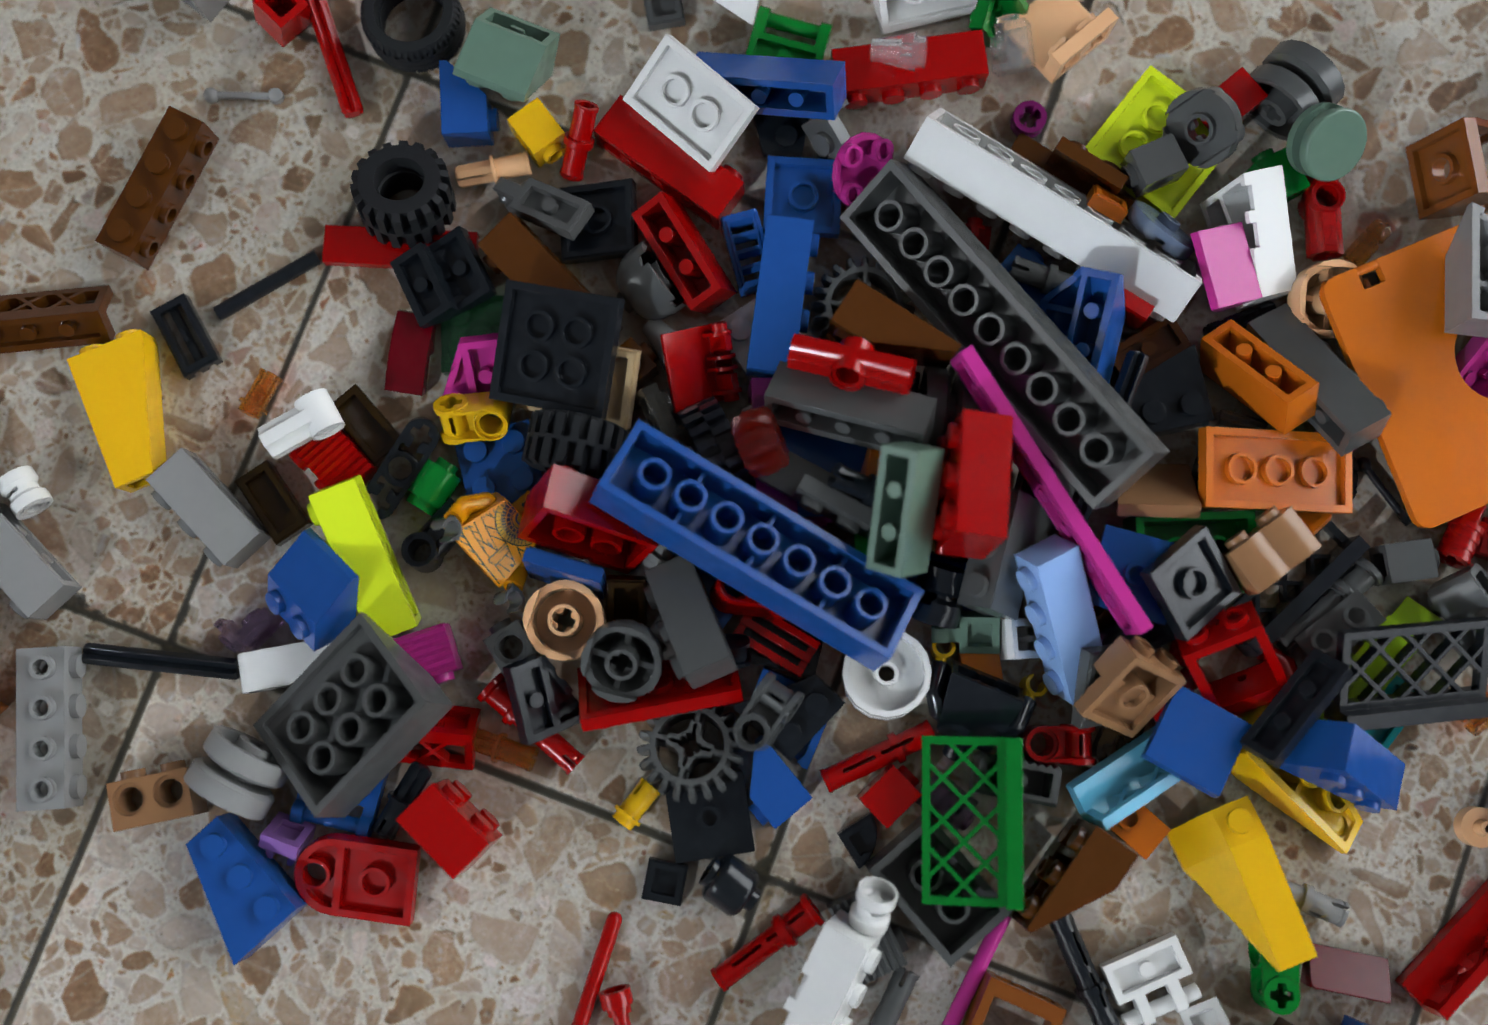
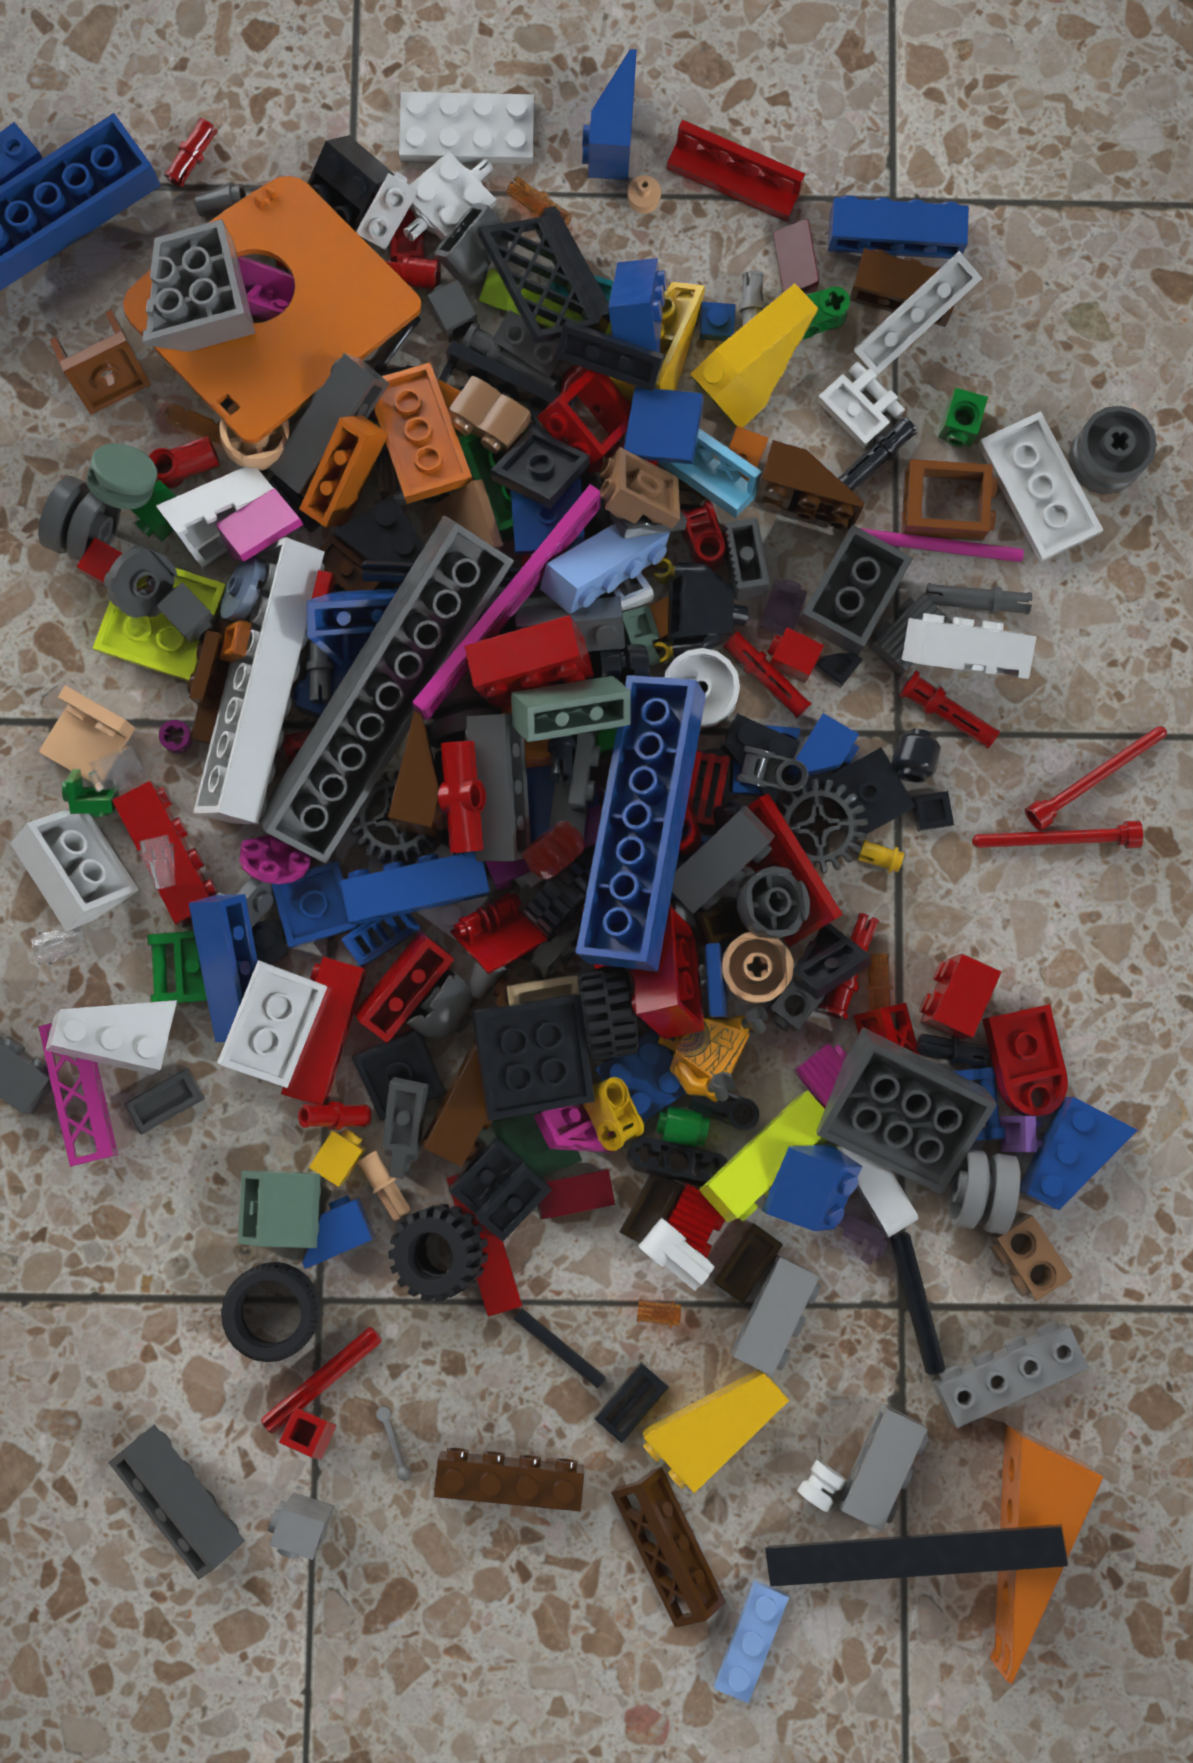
camera: 115 degrees left, 0 degrees up
(873, 906) = (890, 632): white wheel -> none
(1009, 822) = (785, 547): green fence -> none
(1301, 853) = (717, 321): none -> blue plate

